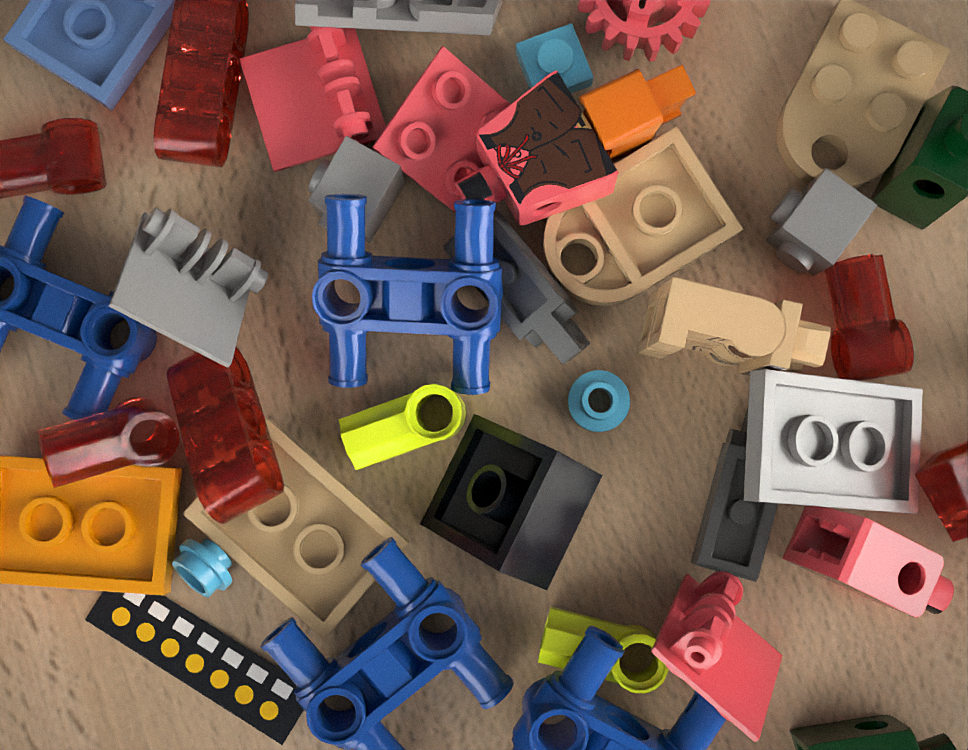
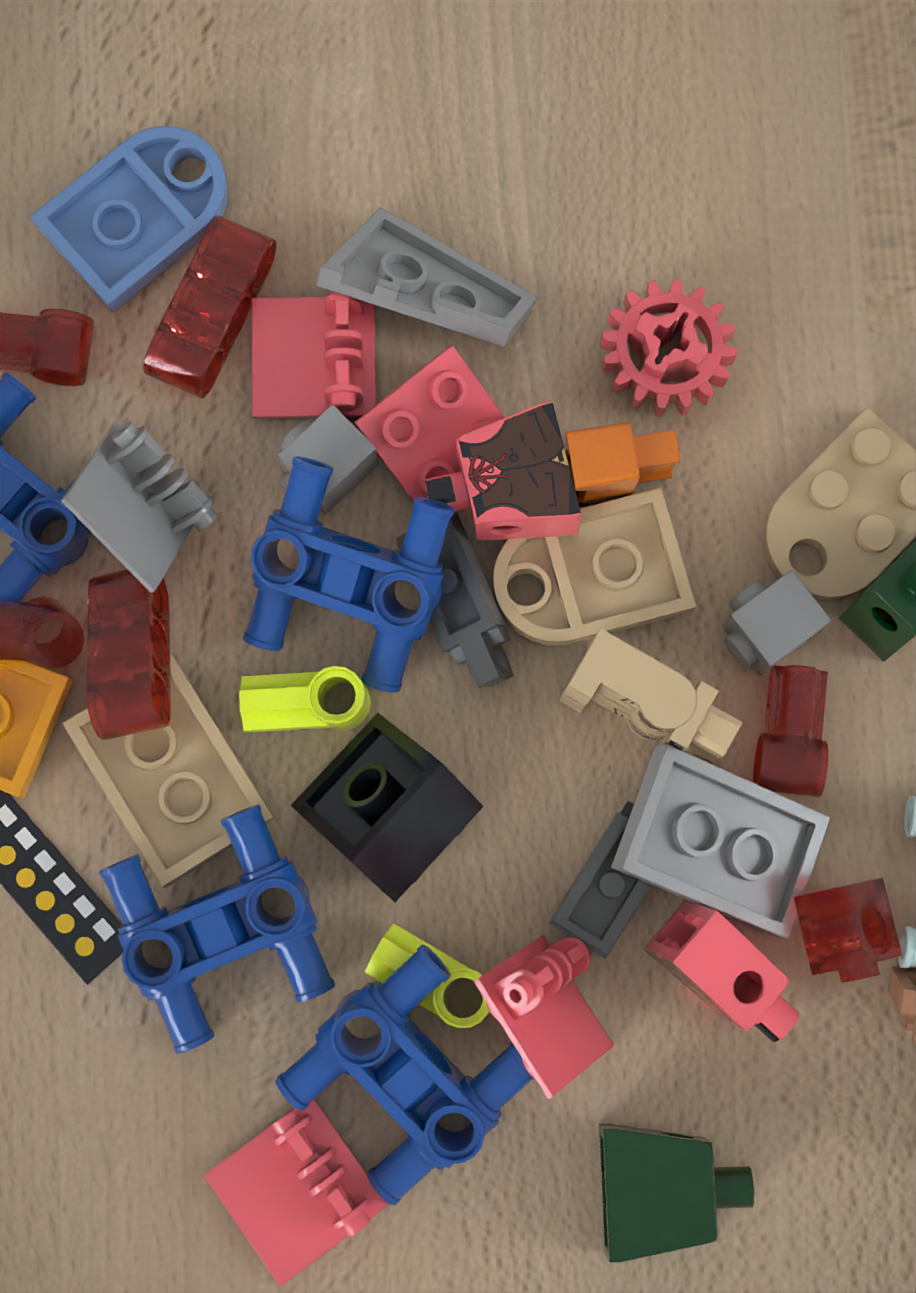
camera: 15 degrees right, 5 degrees down
(203, 566) = (65, 781): medium azure plate -> none
(552, 52) = (567, 385): medium azure plate -> none
(579, 406) = (504, 755): medium azure plate -> none

